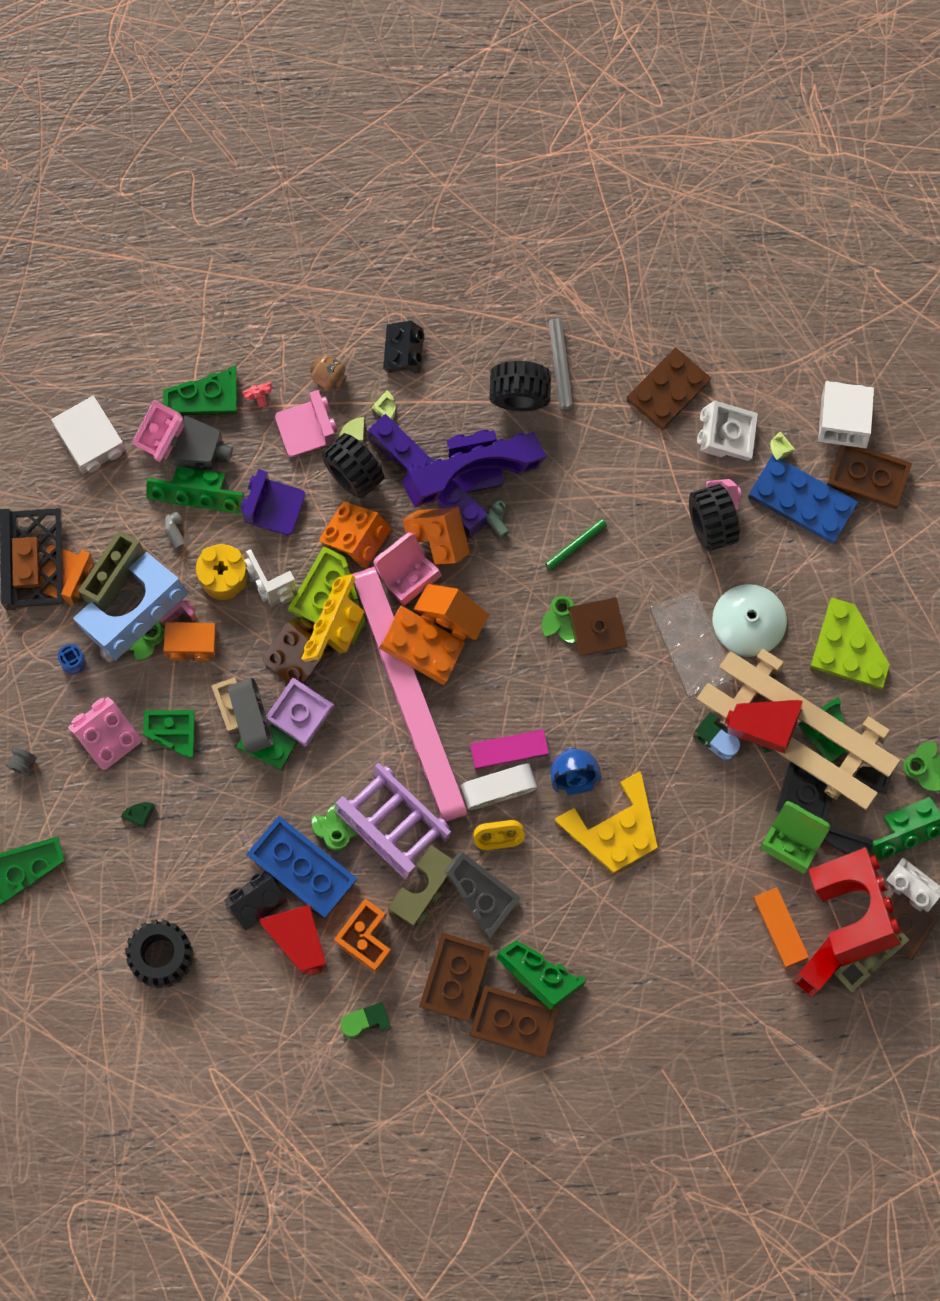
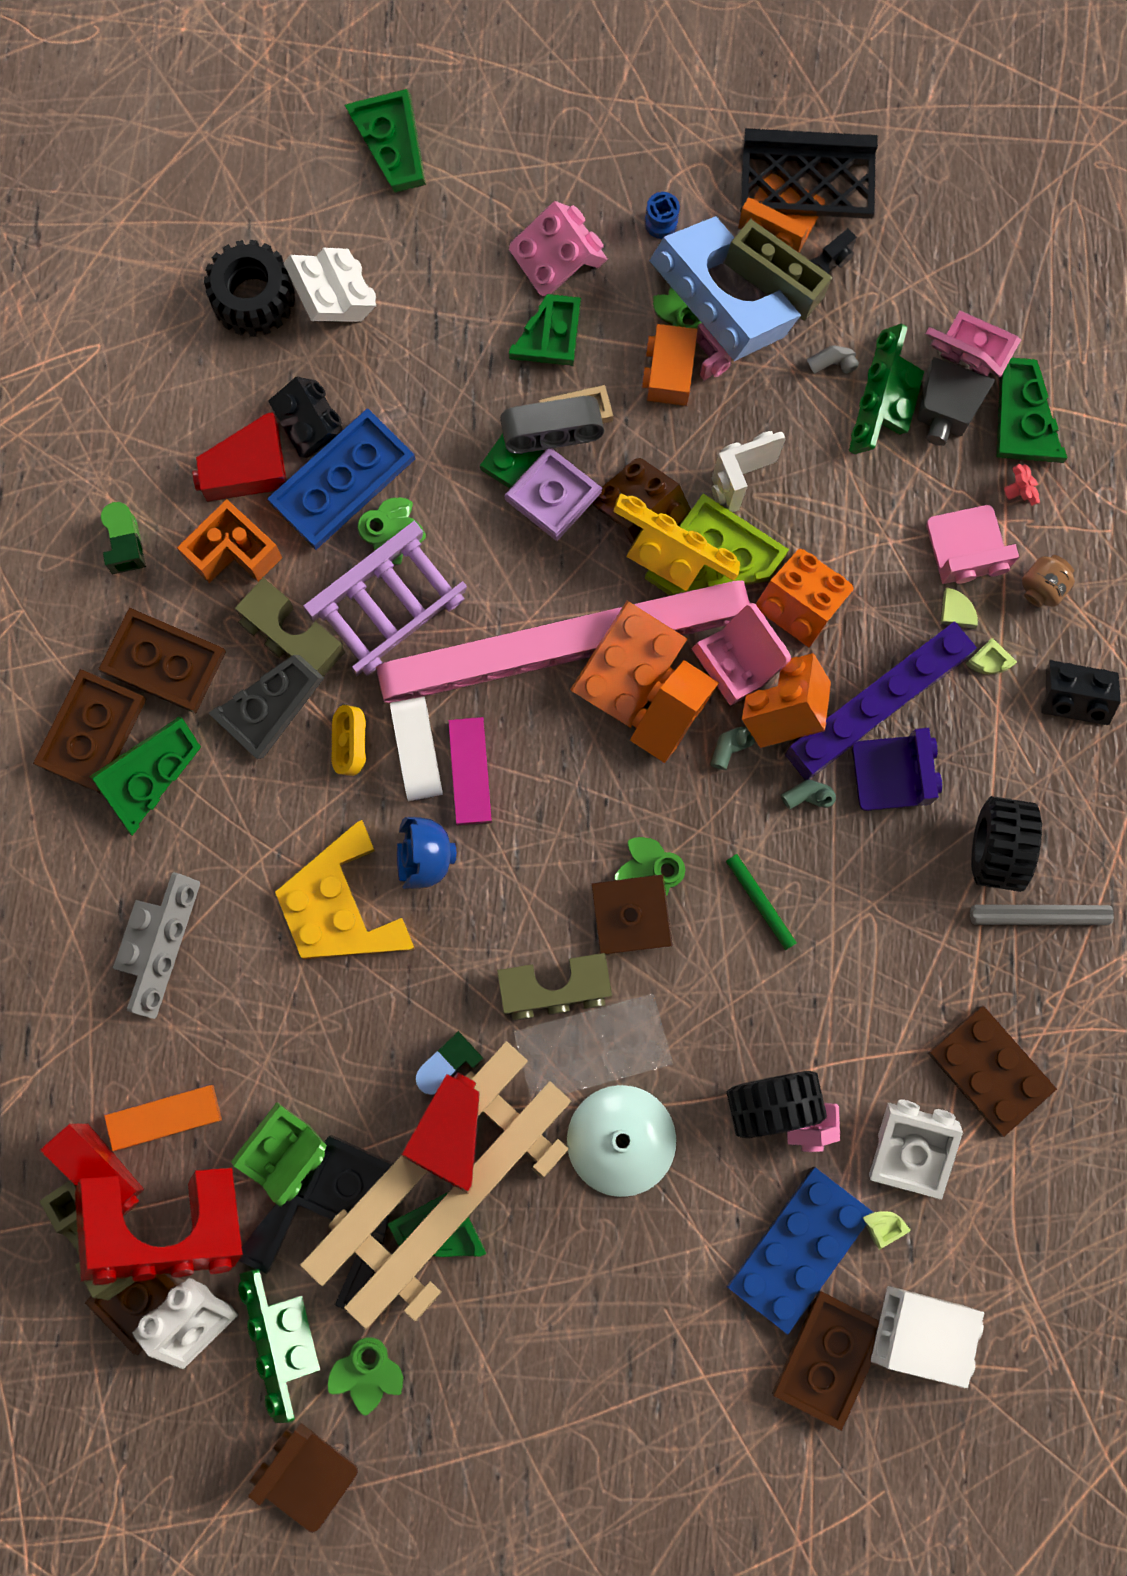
camera: 95 degrees right, 5 degrees up
(21, 761) = (530, 144): dark grey wheel -> none
(25, 562) = (800, 163): dark orange plate -> none
(88, 435) = (977, 259): white brick -> none
(92, 532) = (836, 252): none -> black plate
(138, 813) = (443, 285): dark green tile -> none
(153, 891) = (331, 285): none -> white plate
(219, 558) = (764, 393): yellow brick -> none
(272, 504) = (857, 487): dark purple bracket -> none
(353, 465) = (900, 594): black tyre -> none
(467, 575) = (729, 743): none -> sand green arm
(516, 455) = (901, 828): dark purple arch -> none
(649, 651) = (587, 985): none -> olive arch
(661, 953) = (154, 942): none -> light grey bracket
(848, 647) = (563, 1284): lime plate -> none

